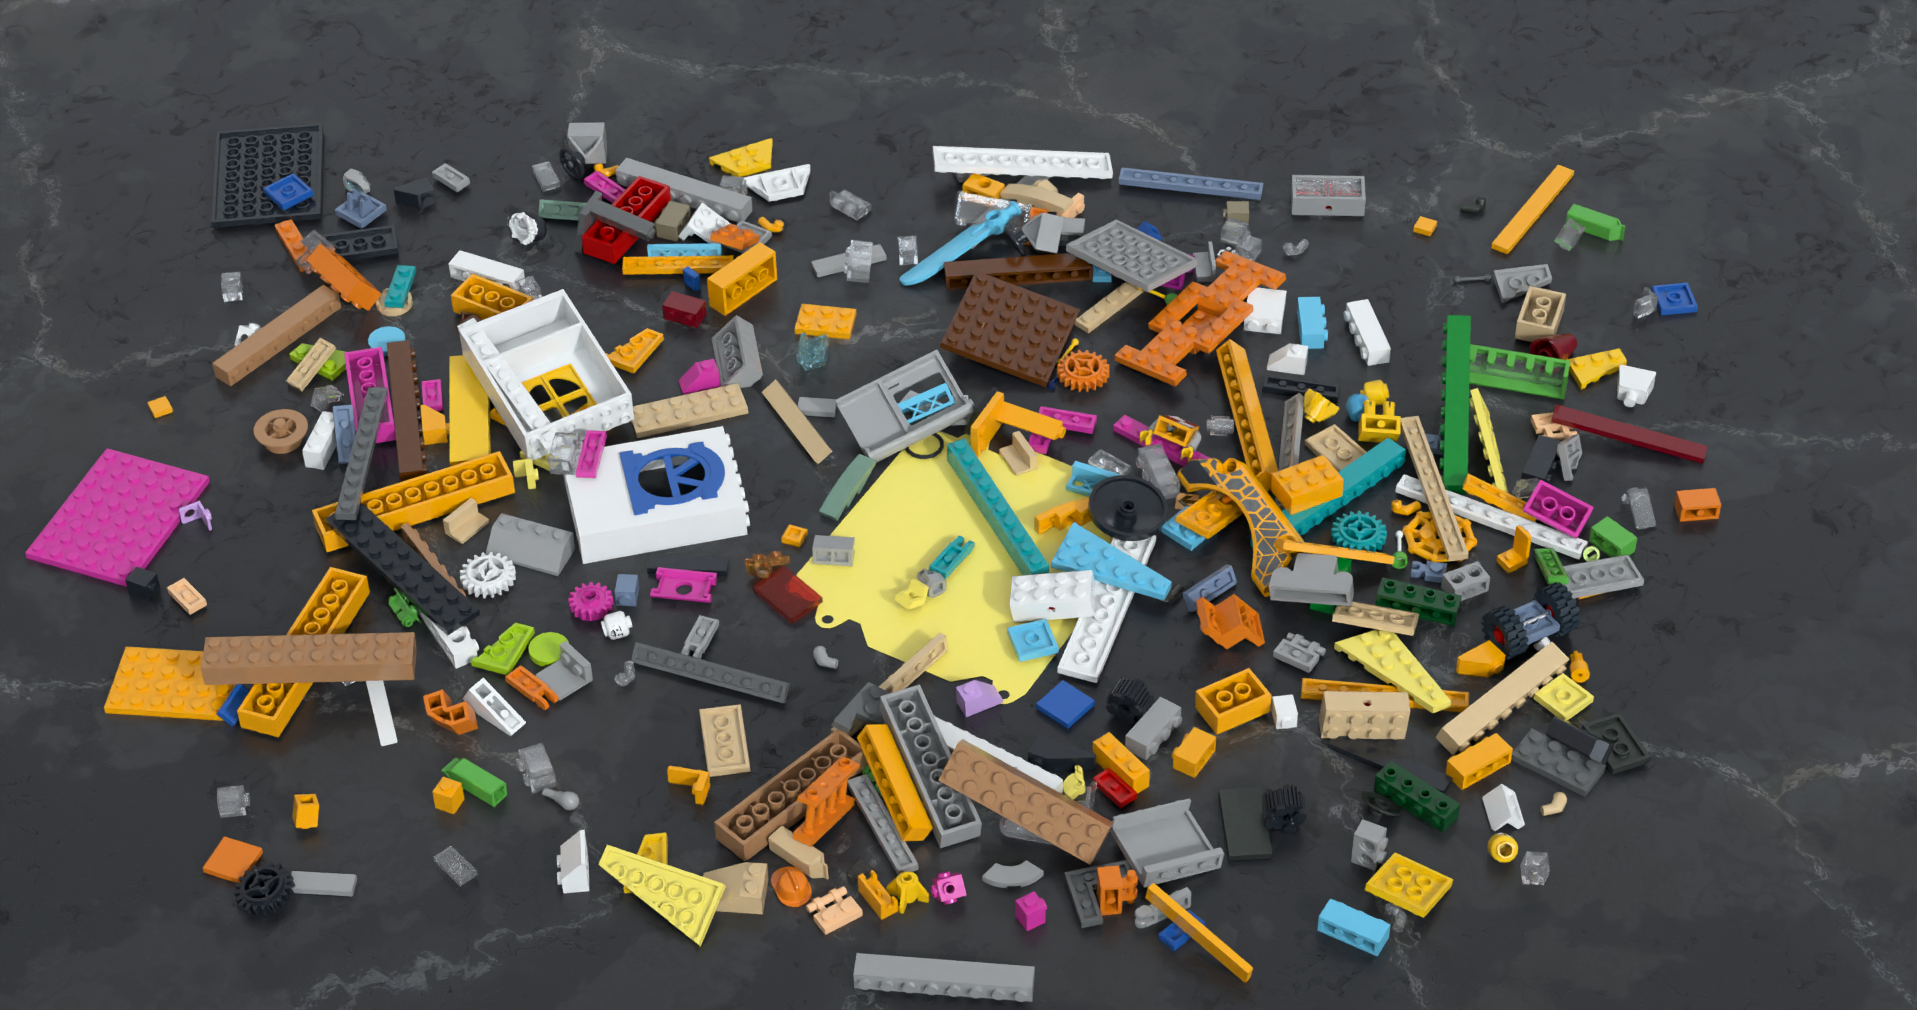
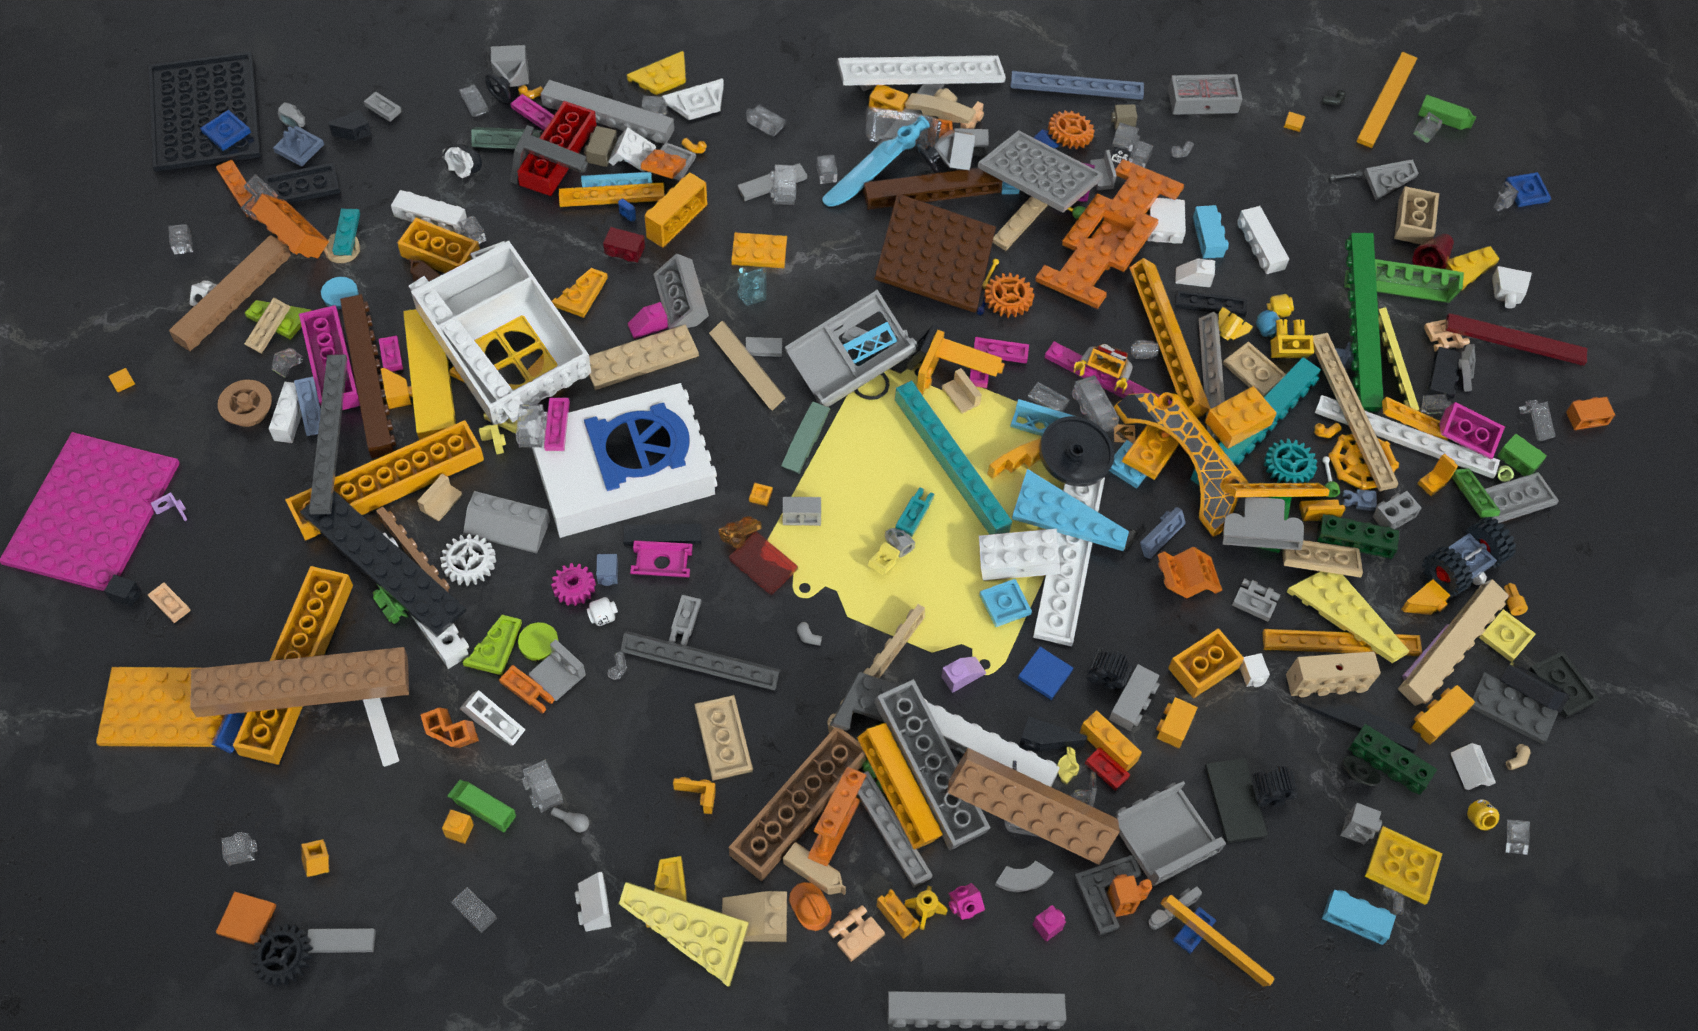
camera: 10 degrees left, 15 degrees up
(1176, 223) = (1070, 129): none -> orange gear
(1373, 576) = (1315, 509): none -> light orange panel

